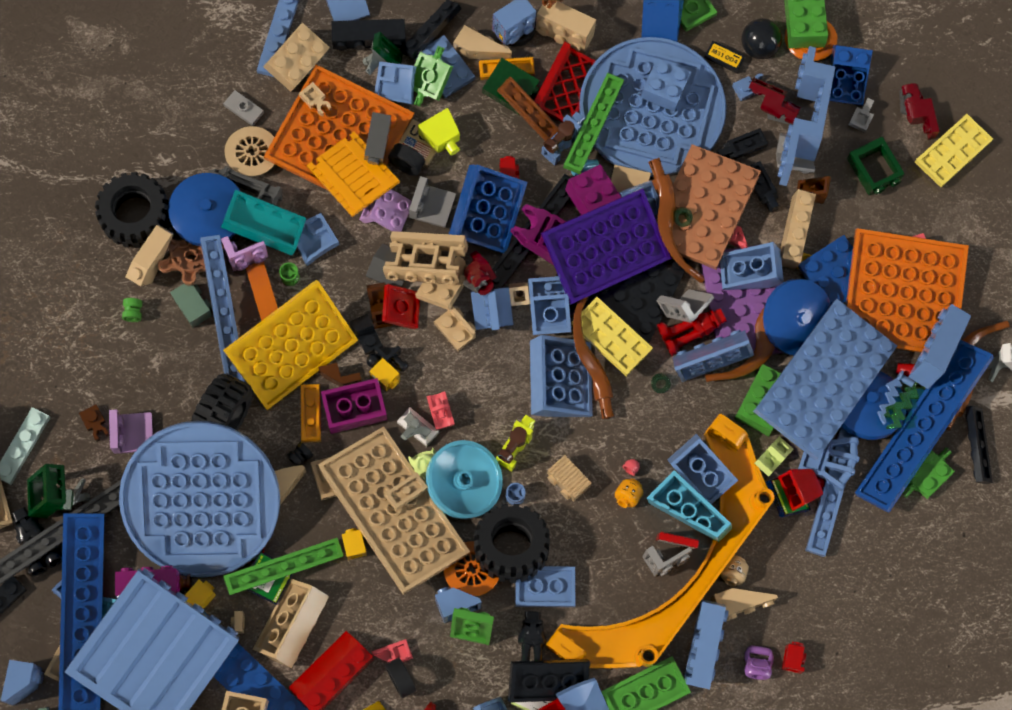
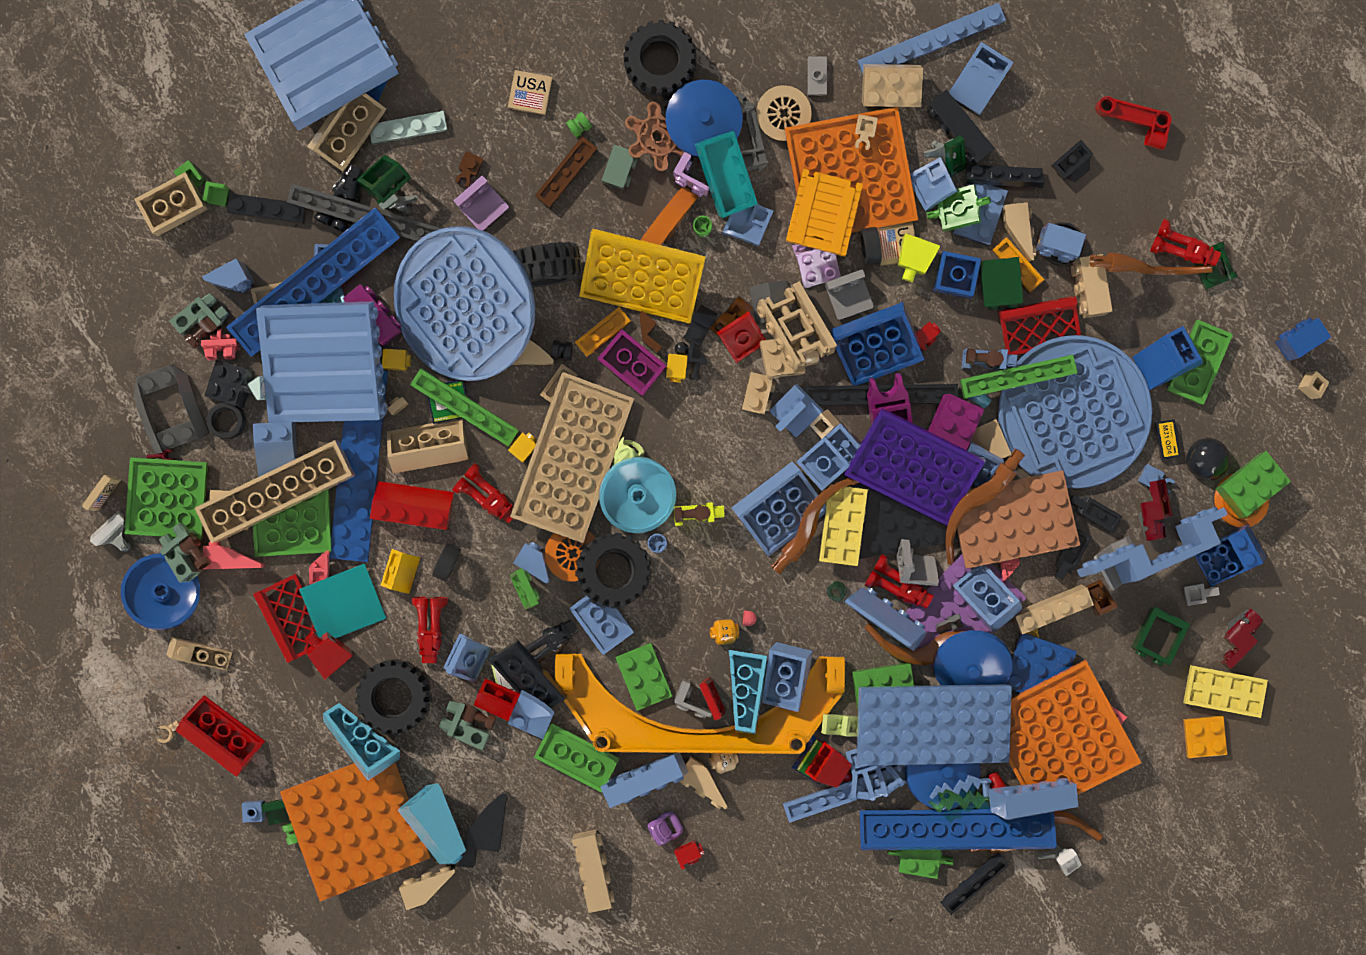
camera: 60 degrees right, 15 degrees up
(75, 329) = (530, 92): none -> tan tile
(145, 263) = (631, 104): tan slope -> none
(160, 347) = (566, 172): none -> reddish brown plate
(185, 582) = (397, 340): reddish brown bush -> none
(220, 299) = (636, 191): medium blue plate -> none
(377, 138) = (866, 210): dark grey slope -> none
(382, 602) = (495, 503): none -> red piece
(393, 651) = (465, 542): coral tile -> none
(406, 491) = (592, 457): tan plate -> none
(417, 427) = (653, 424): piece -> none
(440, 410) = (679, 433): coral hips -> none
(479, 114) = (956, 274): none -> blue brick
(479, 275) = (812, 381): dark red plate -> none
(528, 109) = (990, 313): dark orange tile -> none
(568, 478) = (701, 575): tan brick -> none
(617, 587) = (643, 676): none -> bright green plate
(665, 84) = (1099, 410): medium blue brick -> none
(683, 211) = (990, 503): clear green piece -> none
(752, 312) = (952, 623): none -> dark grey piece
(979, 190) = (1205, 736): none -> light orange plate

